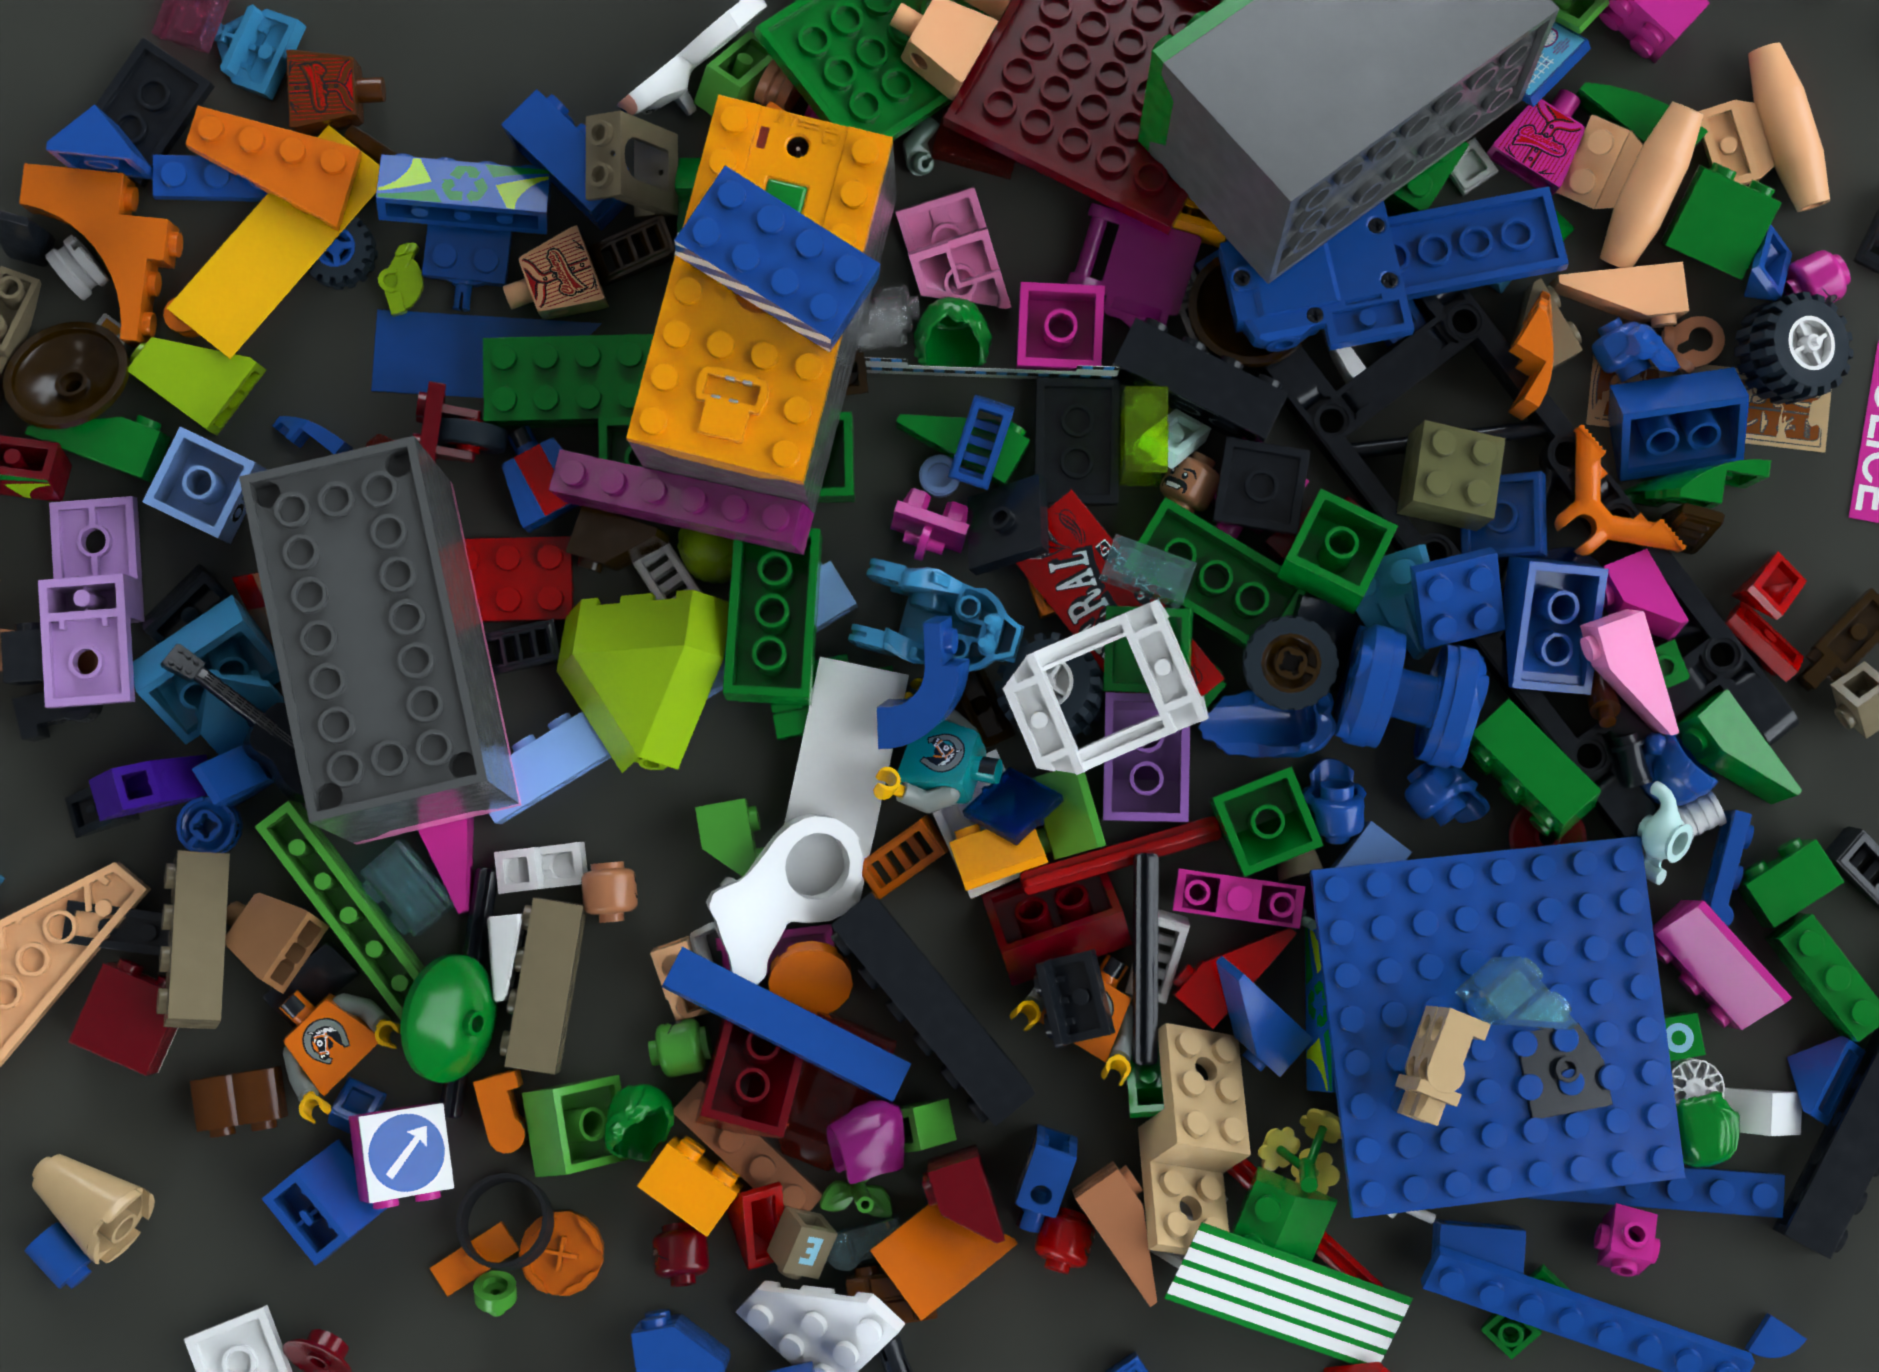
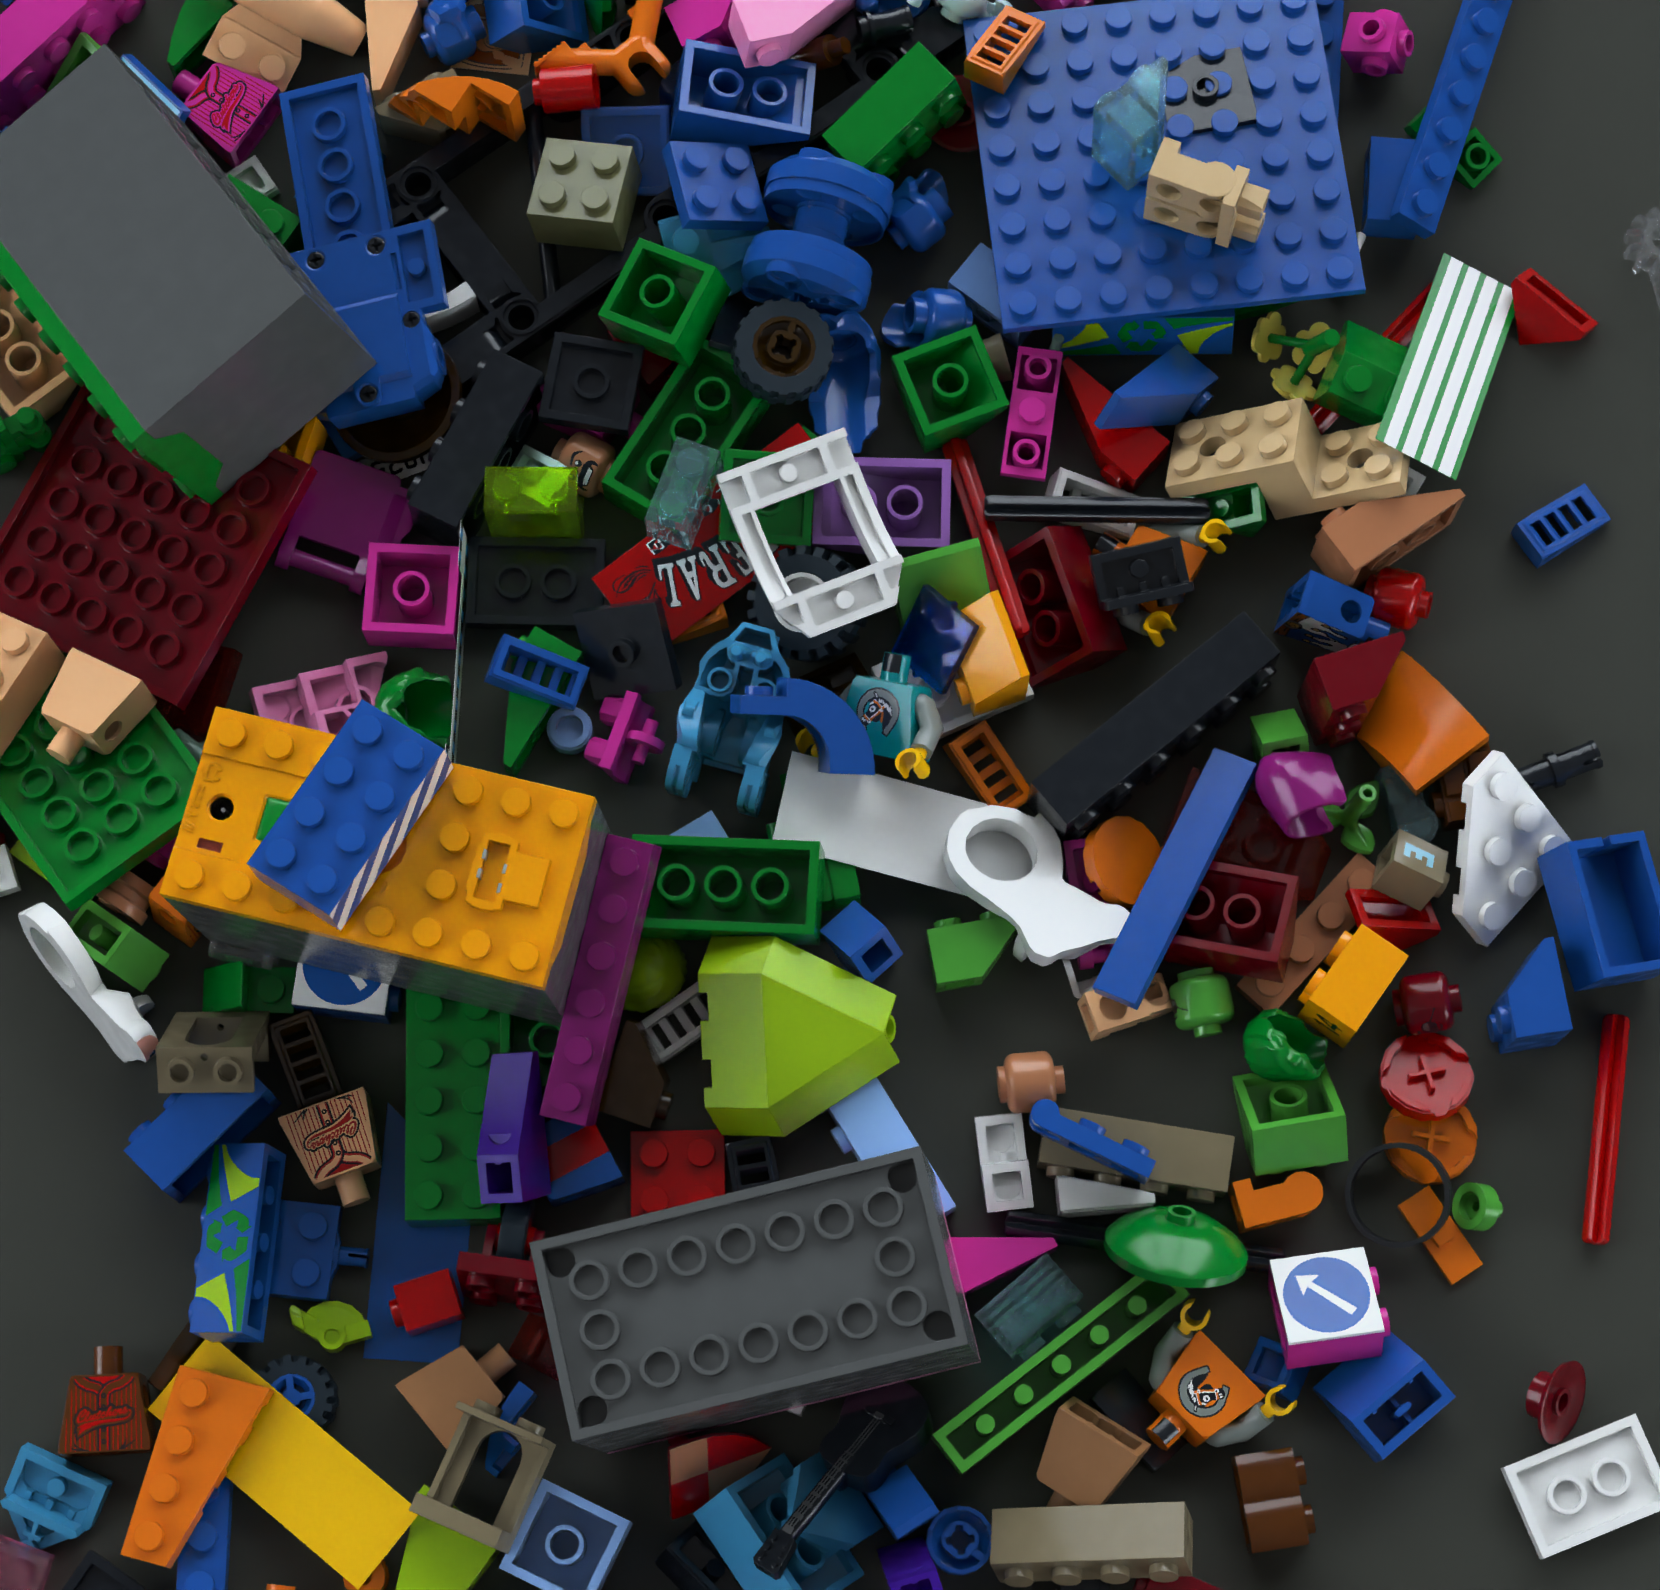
camera: 90 degrees left, 10 degrees down
(214, 393) = (475, 1426): none -> dark tan panel
(338, 389) = (452, 1379): none -> medium nougat torso
(417, 360) = (426, 1303): none -> red brick
(539, 427) = (512, 1133): none -> dark purple slope
(545, 942) = (1089, 1140): none -> blue plate
(613, 1251) = (1426, 1076): none -> red tile
(726, 738) = (861, 942): none -> blue slope
(1557, 457) = (567, 88): none -> red brick
(1572, 870) = (1000, 76): none -> orange slope

